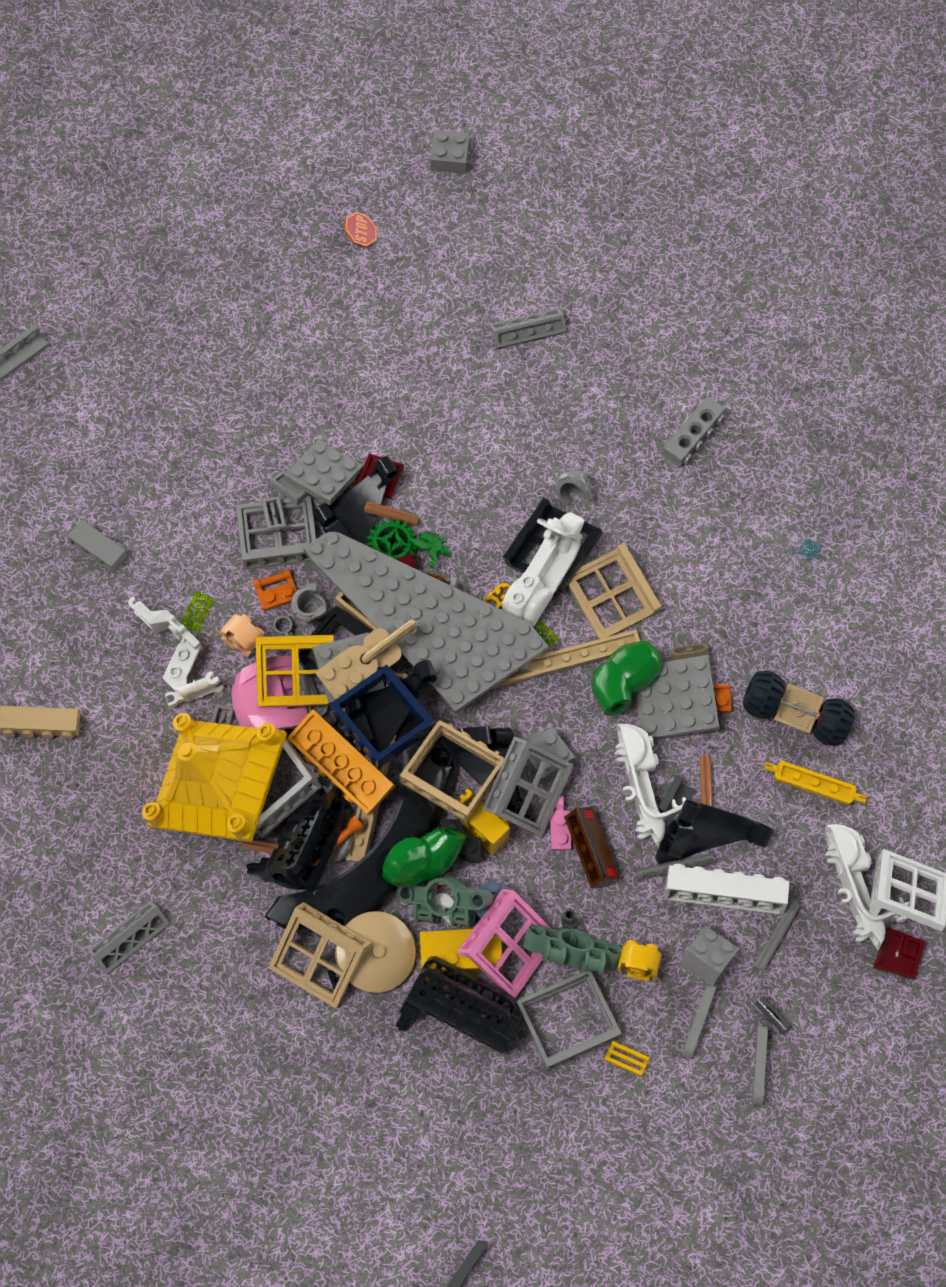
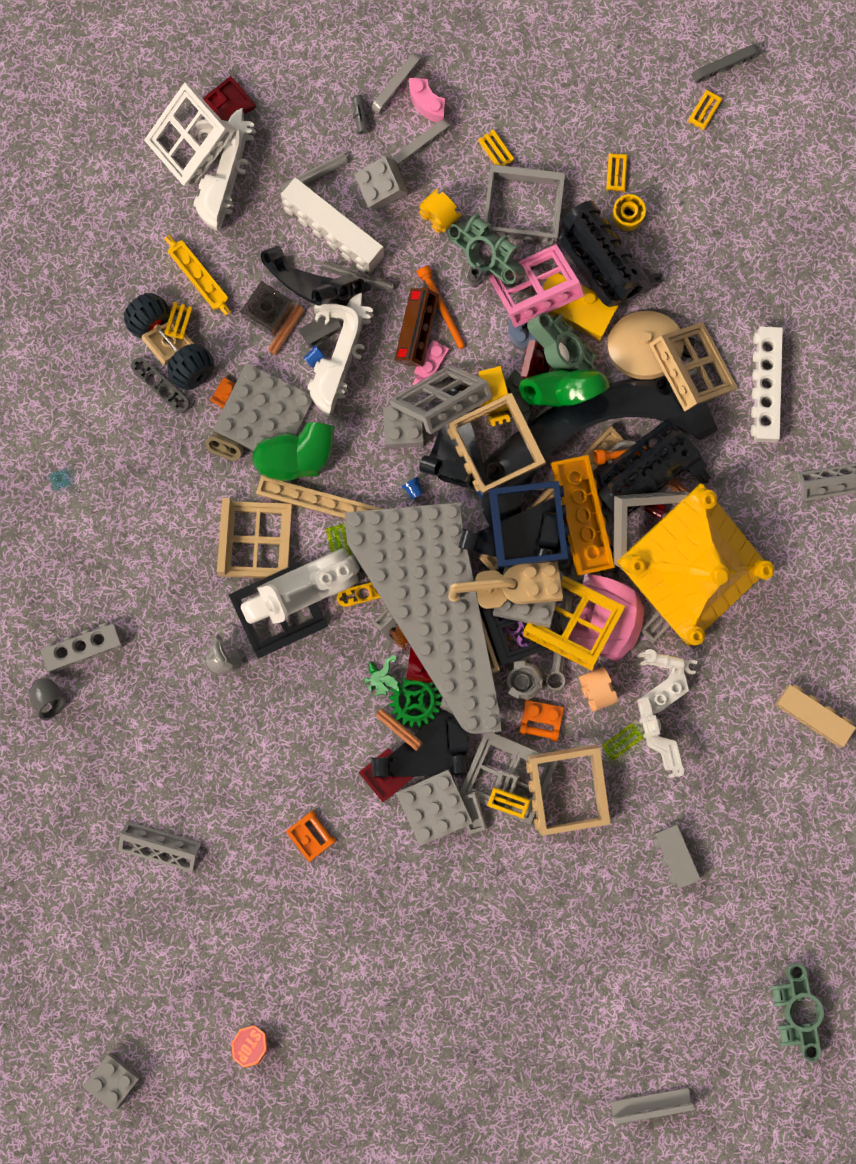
camera: 145 degrees left, 15 degrees up
(215, 941) = (772, 337): none -> white brick
(239, 562) = (599, 785): none -> tan window
(263, 508) = (510, 795): none -> yellow tile
(414, 394) = (305, 839): none -> orange plate
(453, 1217) = (697, 123): none -> yellow tile
(462, 1054) = (632, 203): none -> yellow piece
(465, 870) = (534, 361): none -> dark red plate
(505, 712) = (413, 488): none -> blue piece
(508, 1120) = (616, 188): none -> yellow tile
(614, 902) = (425, 274): none -> orange piece
(664, 773) = (314, 356): none -> blue piece
(695, 378) = (44, 692): none -> dark grey piece
(721, 1061) = (425, 100): none -> bright pink brick
(733, 785) = (267, 309): none -> clear smoke brick
(781, 669) = (160, 385): none -> dark grey beam
(808, 748) = (181, 309): none -> yellow tile

